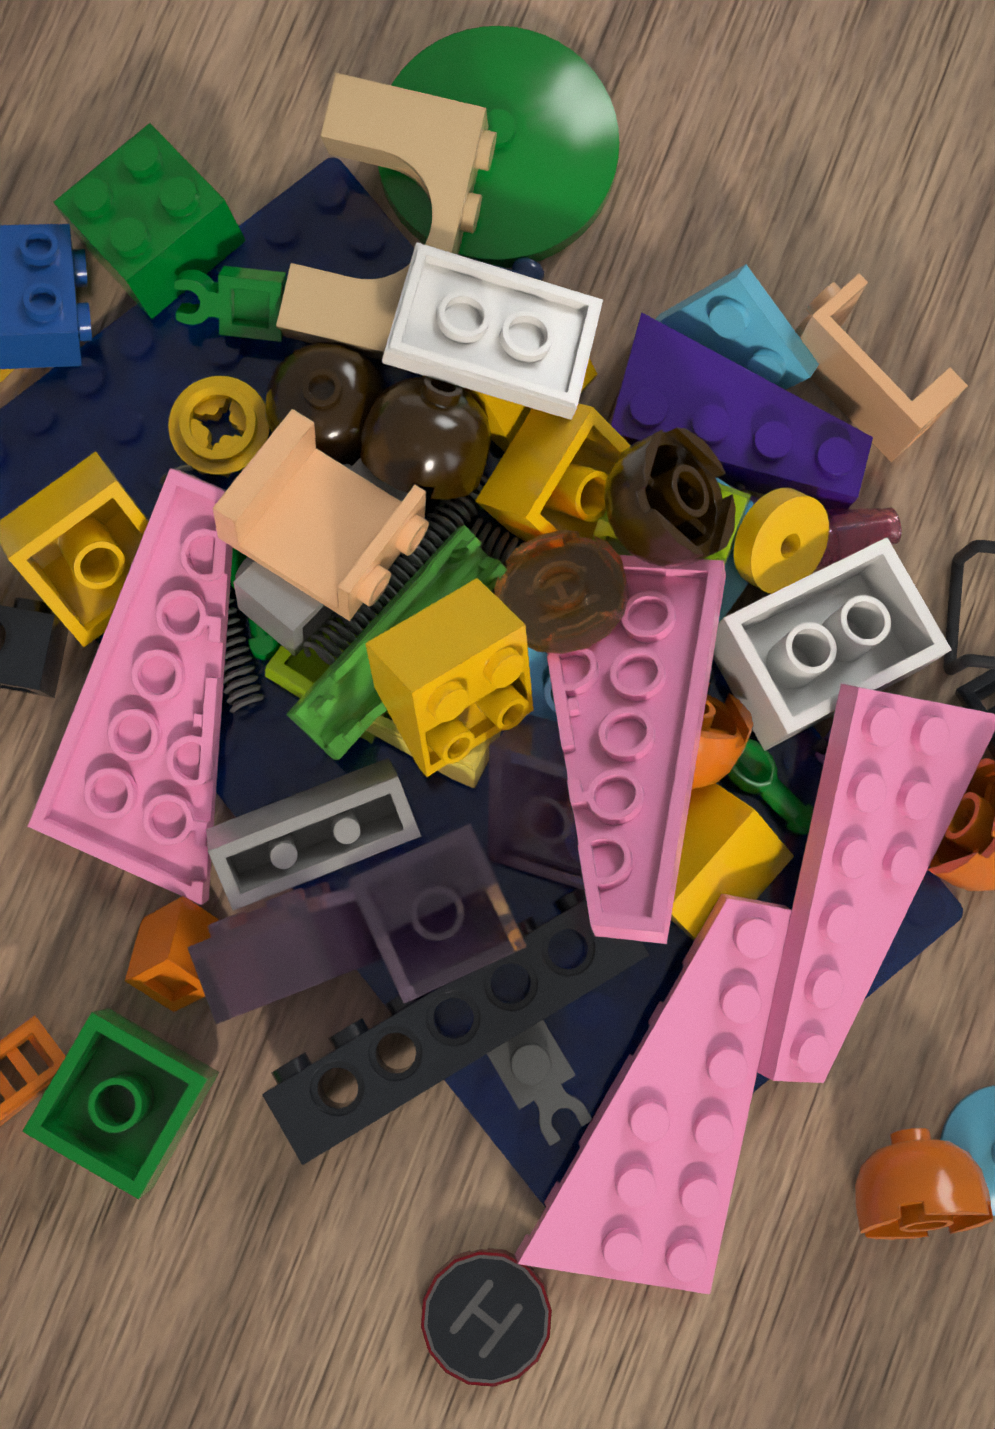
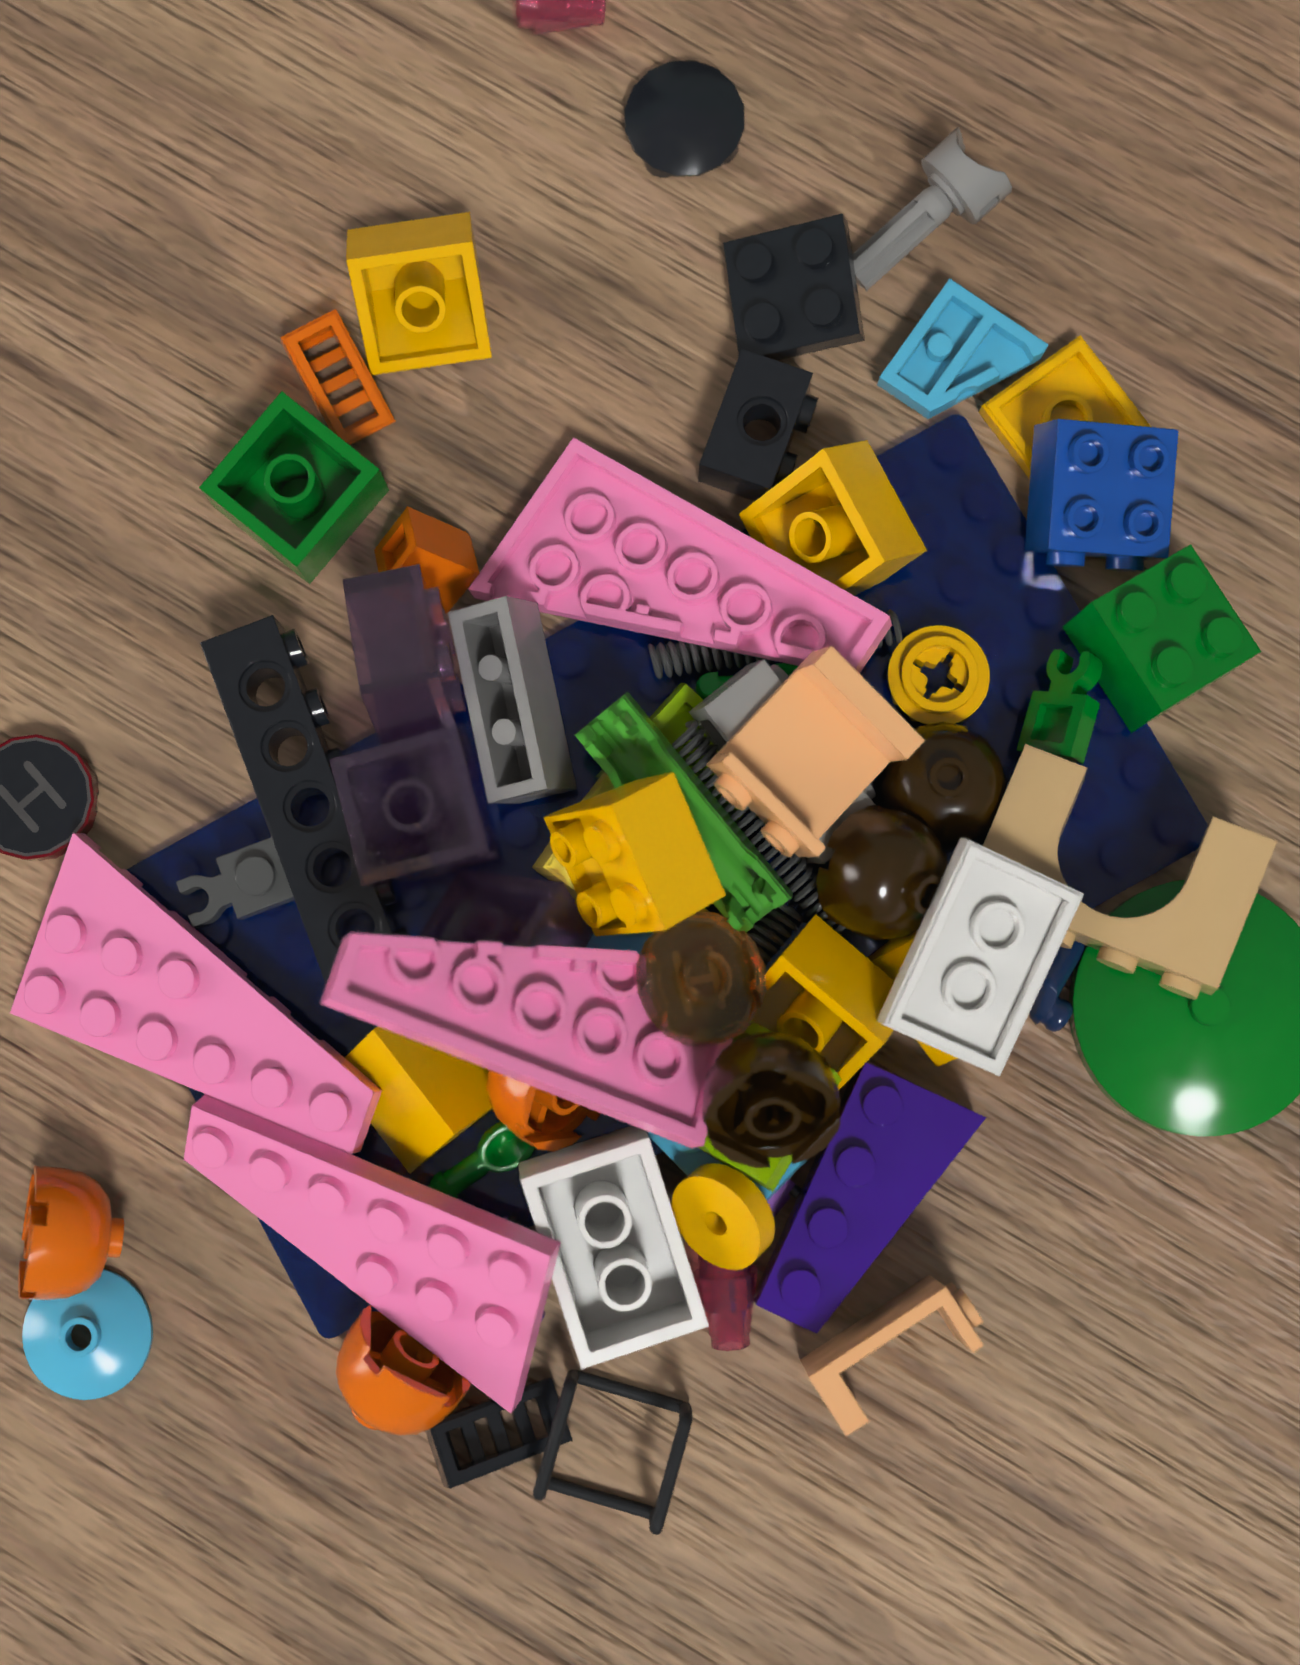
camera: 105 degrees right, 0 degrees up
(745, 327) = (955, 1220): medium azure wing -> none

